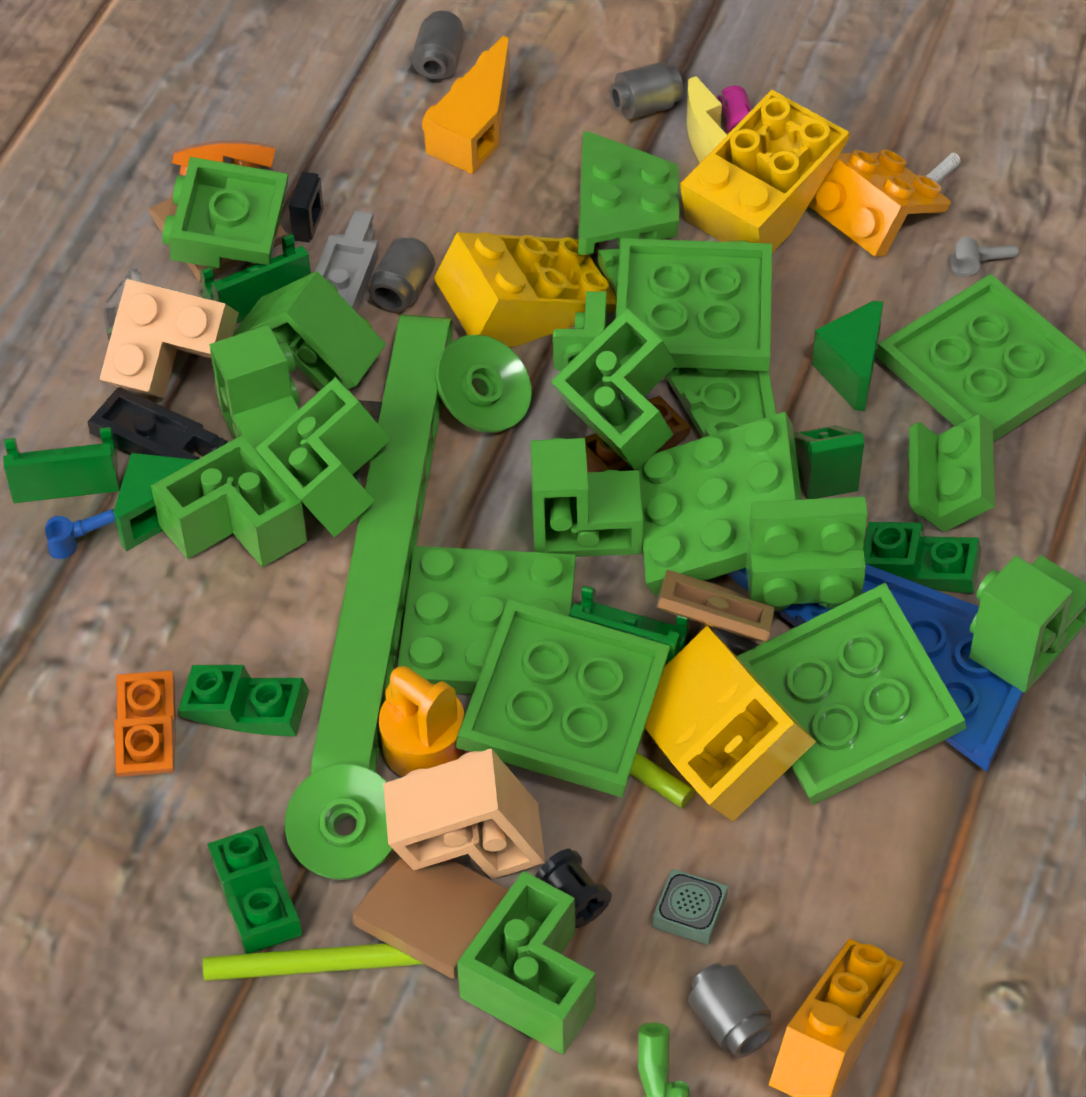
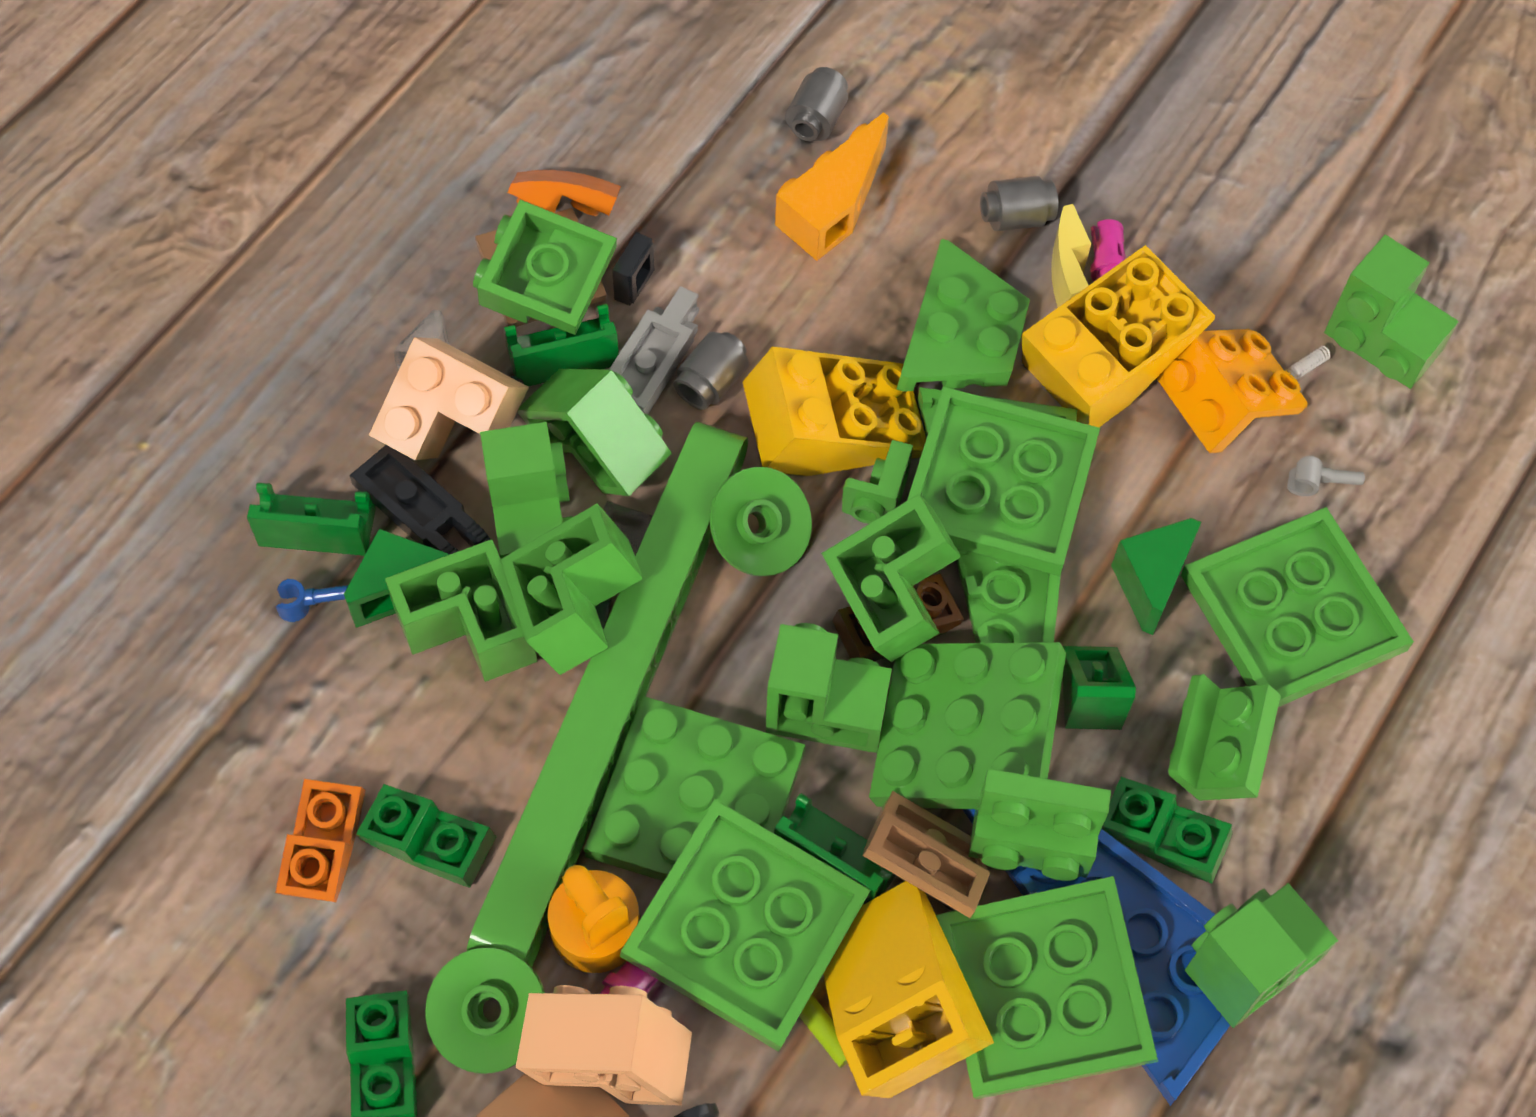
camera: 10 degrees right, 10 degrees up
(999, 117) = (1385, 317): none -> bright green brick

